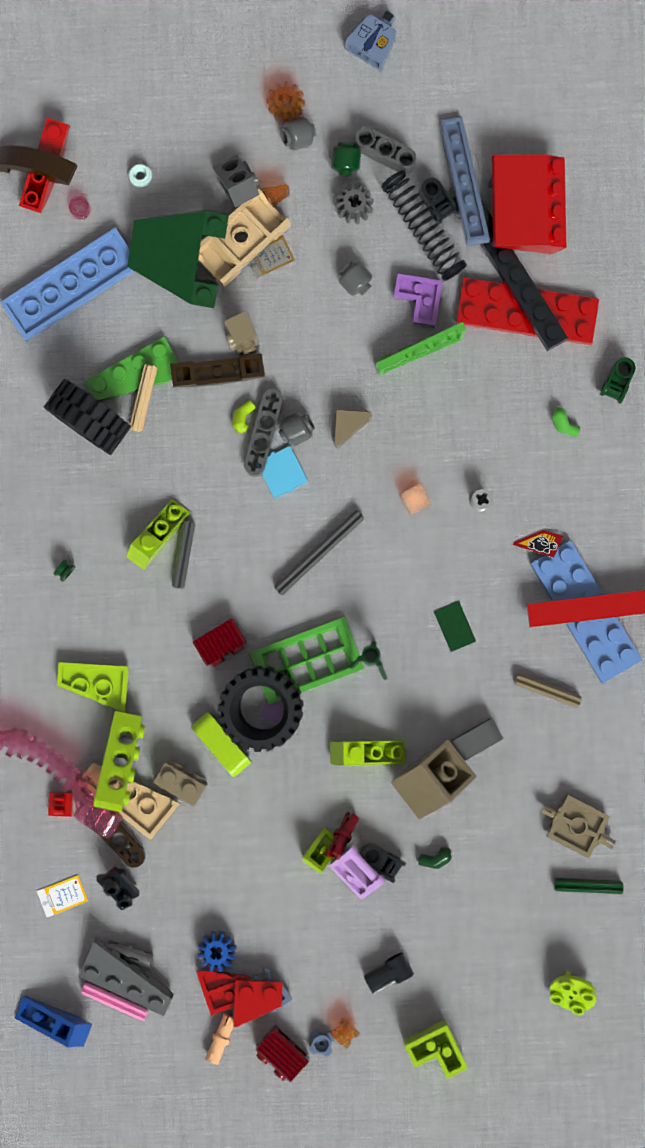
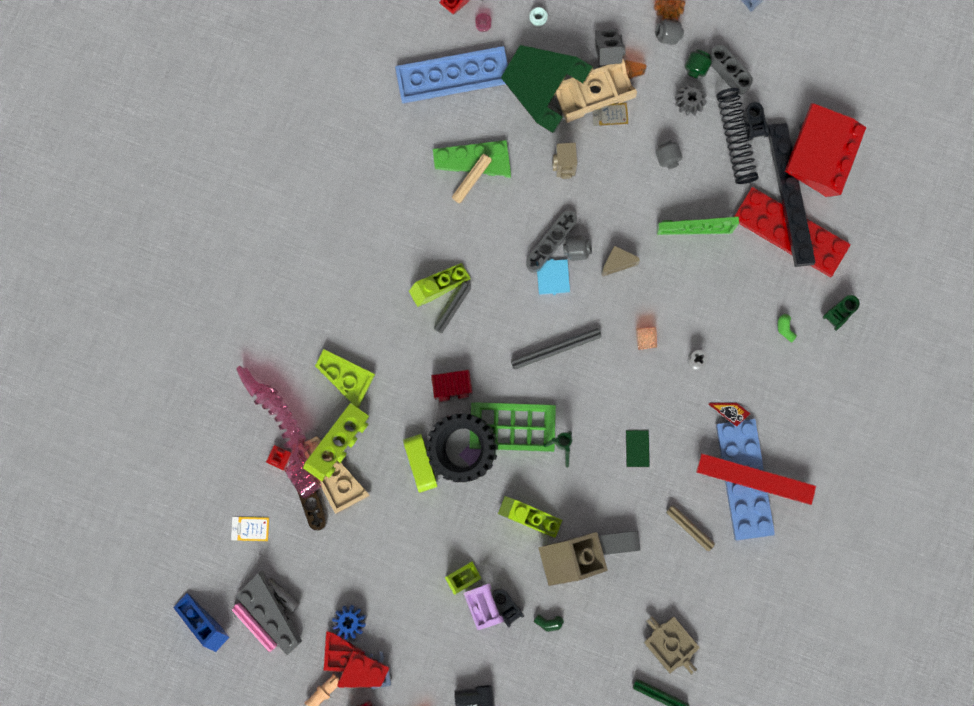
camera: 30 degrees right, 5 degrees down
(64, 570) = (358, 282): dark green bush -> none
(87, 416) = (424, 173): black tyre -> none
(118, 887) = (295, 539): black hips -> none
(180, 783) = (376, 480): dark tan brick -> none
(217, 372) = (535, 182): dark brown slope -> none
(239, 416) = (538, 221): lime arm -> none
(342, 836) = (483, 573): dark red pin -> none
(426, 295) = (717, 186): medium lavender plate -> none
(464, 181) = (781, 115): sand blue tile -> none

